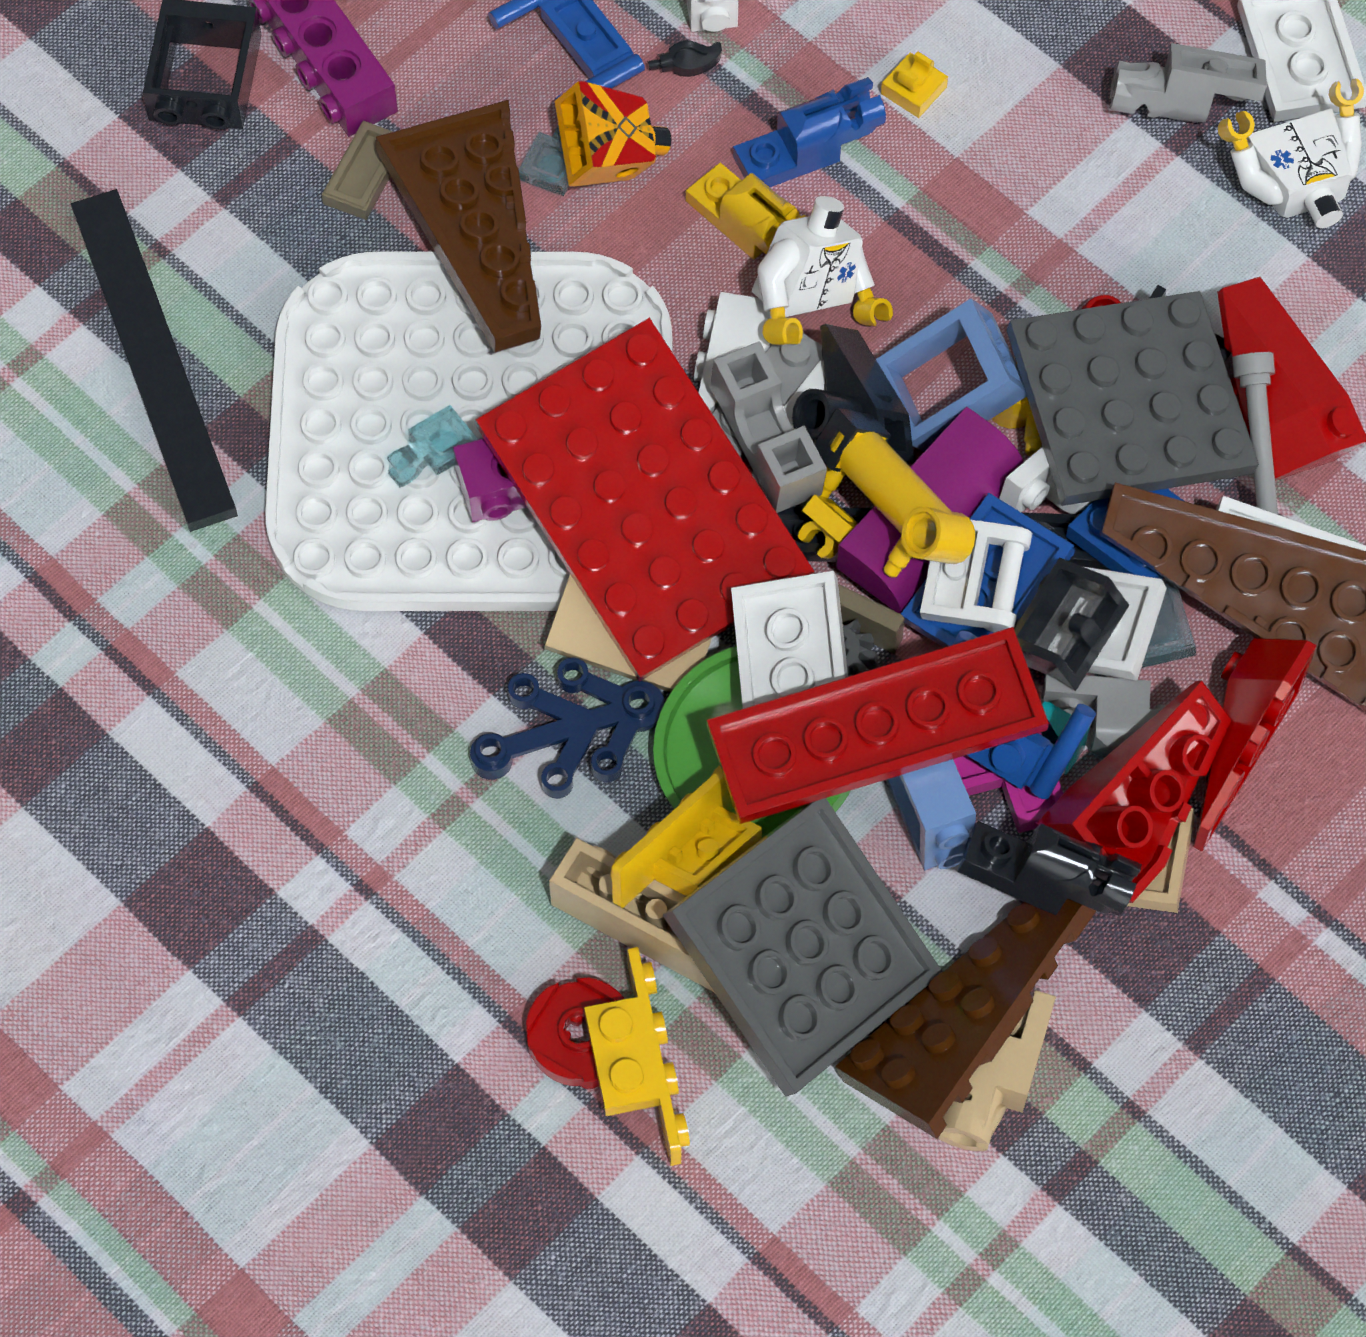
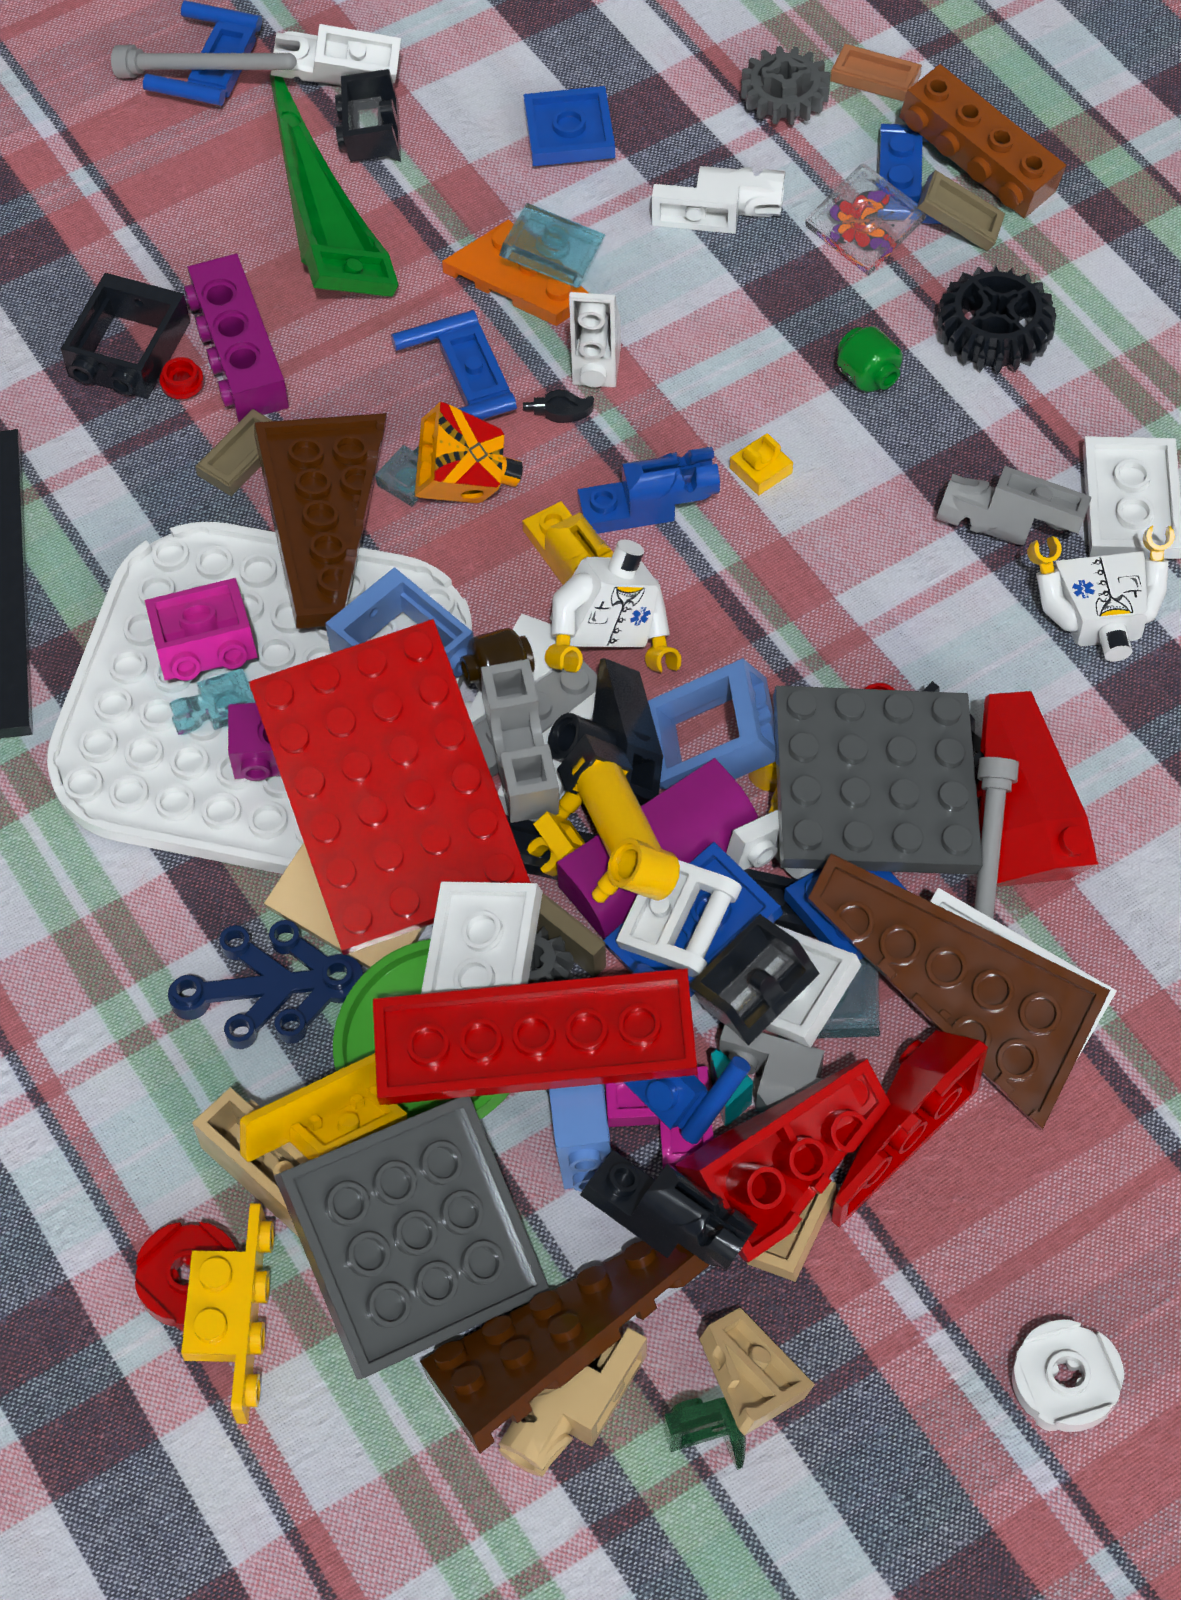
camera: 15 degrees right, 5 degrees down
(275, 90) = (181, 378): none -> red plate
(393, 372) = (200, 630): none -> dark pink plate
(594, 295) = (383, 603): none -> medium blue window
(711, 339) = (494, 649): none -> dark brown head
(1122, 1066) = (700, 1422): none -> clear green plate
(1161, 1006) = (752, 1371): none -> tan wing

